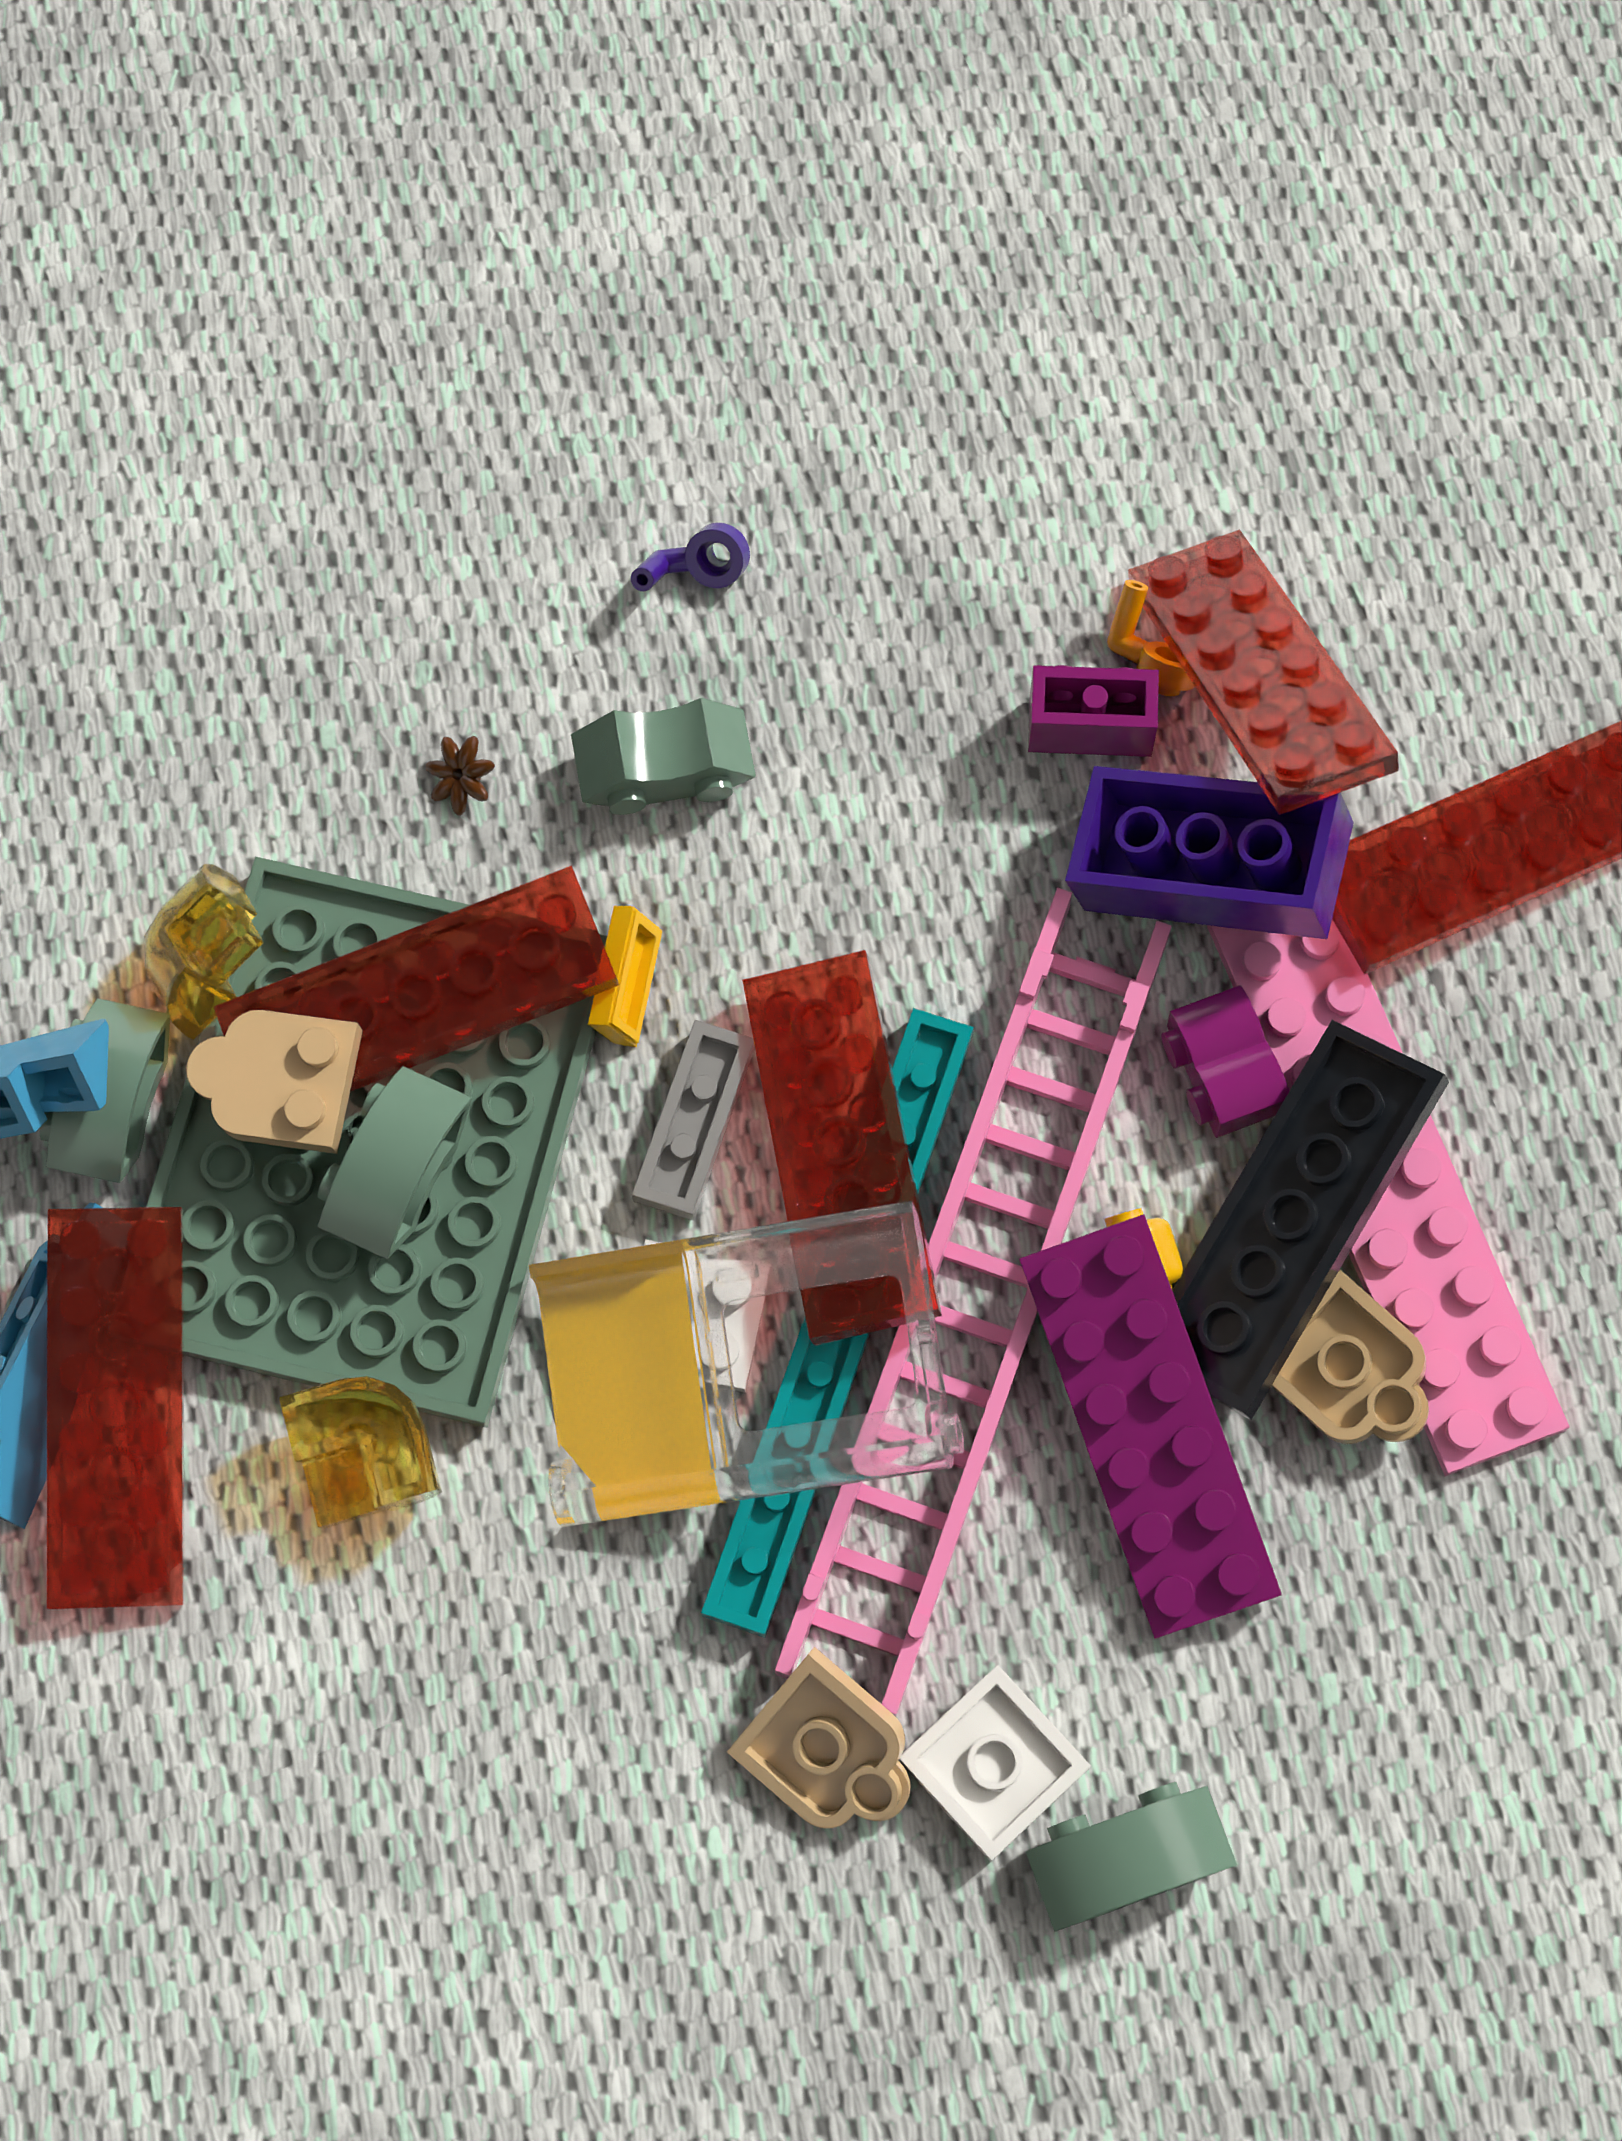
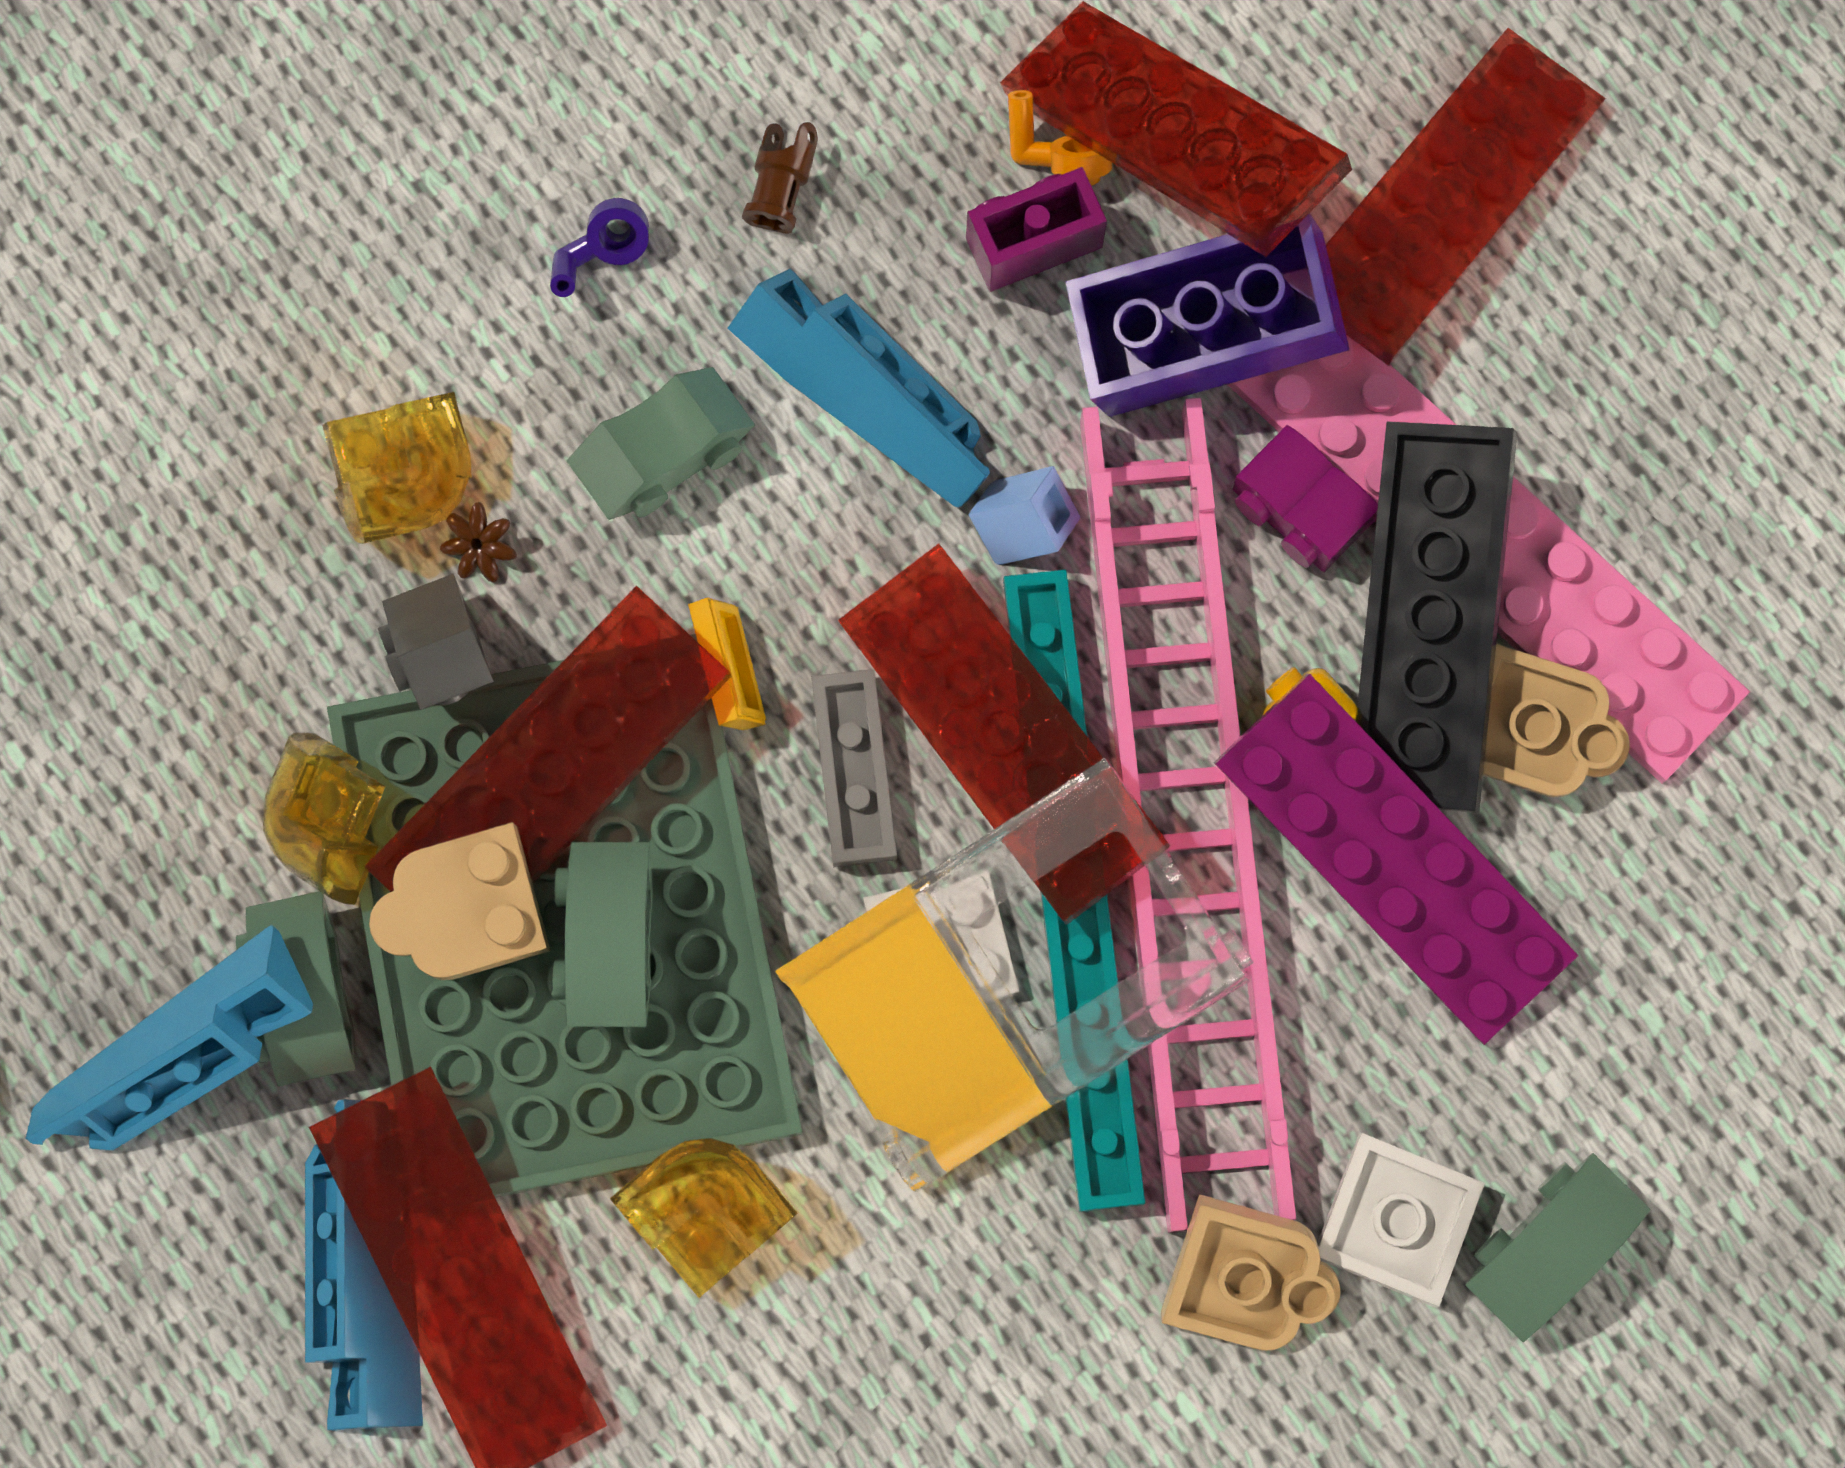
camera: 30 degrees left, 5 degrees up
(372, 841) = (433, 644): none -> dark grey brick
(422, 675) = (399, 467): none -> clear yellow brick
(874, 781) = (864, 381): none -> dark azure wedge
(889, 566) = (780, 178): none -> reddish brown piece
(960, 963) = (1024, 516): none -> light blue panel

